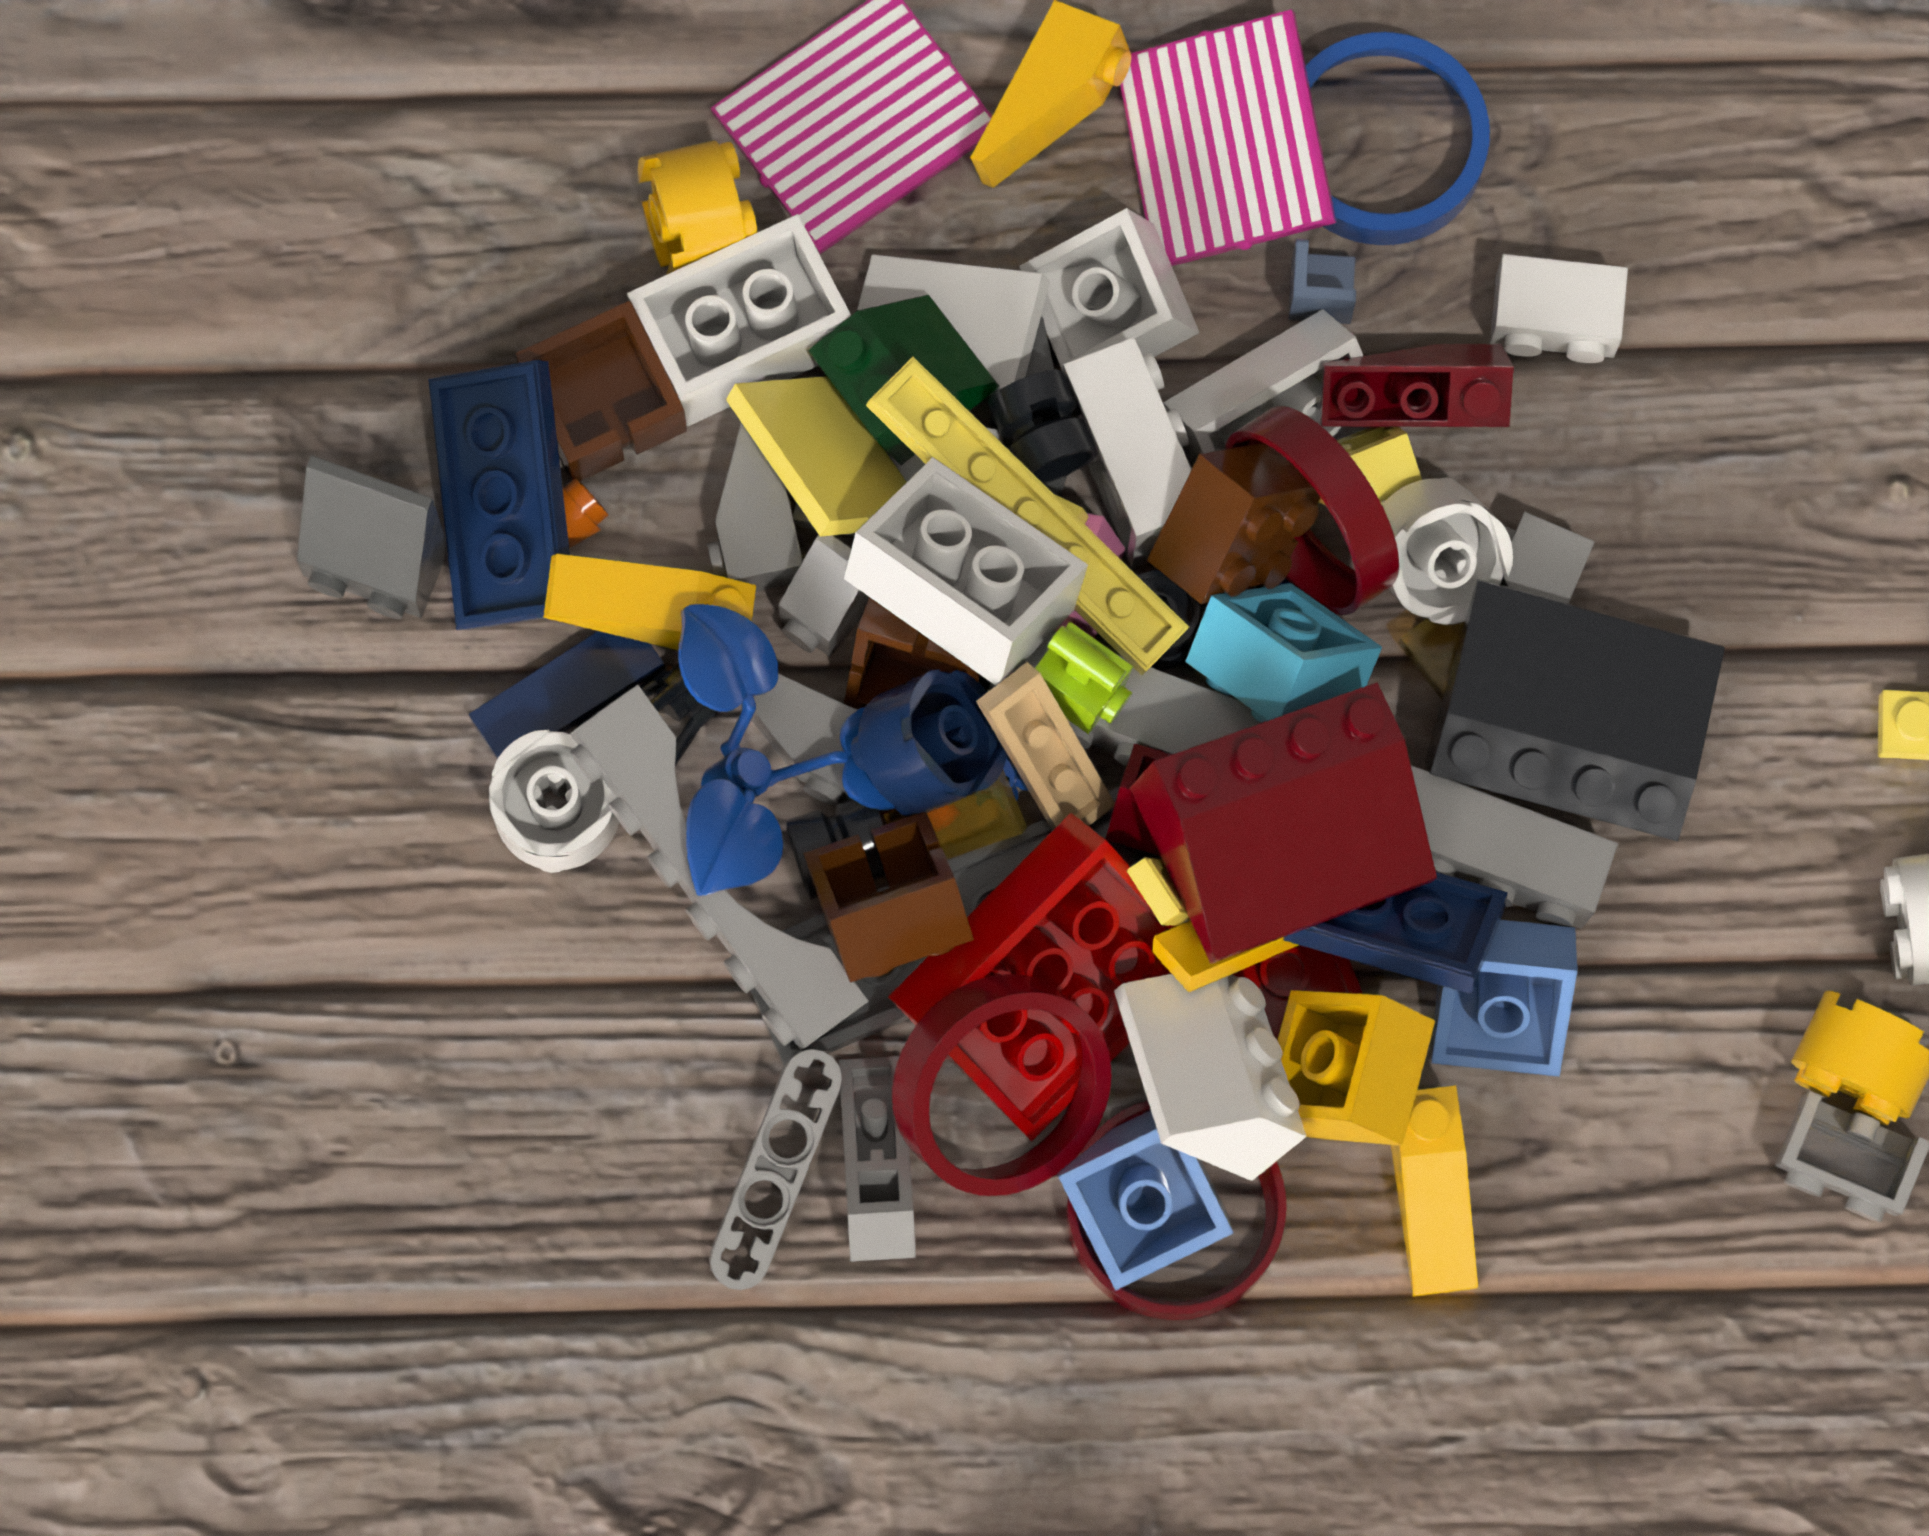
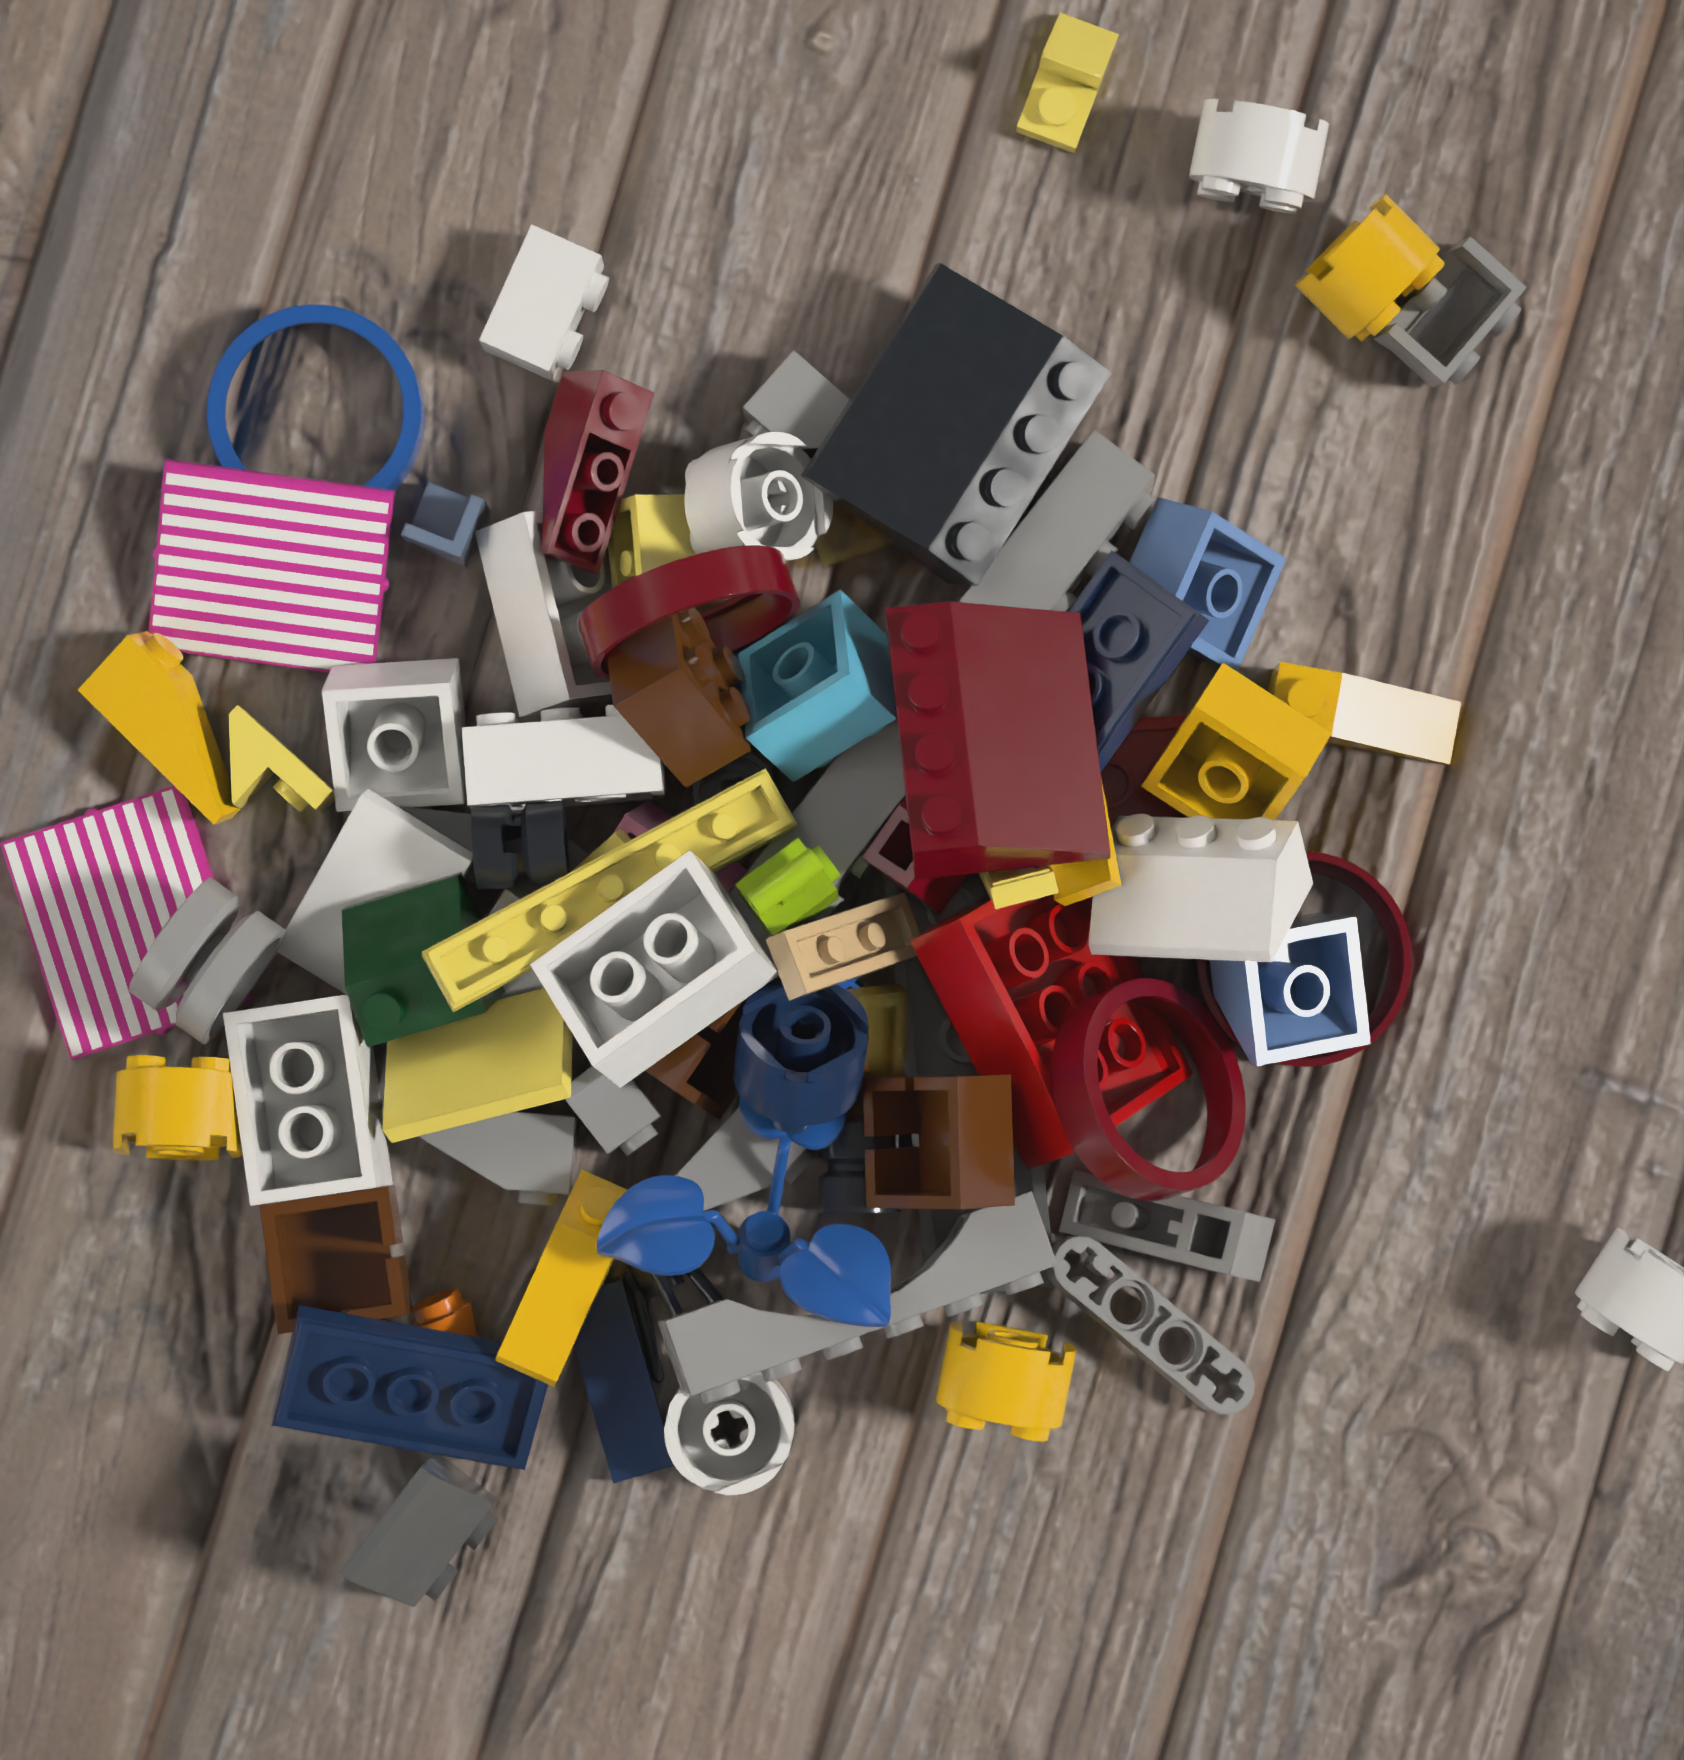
camera: 75 degrees left, 10 degrees up
(680, 1041) = (1005, 1379): none -> yellow brick
(843, 185) = (206, 960): none -> light grey wheel
(1045, 183) = (258, 755): none -> light yellow slope

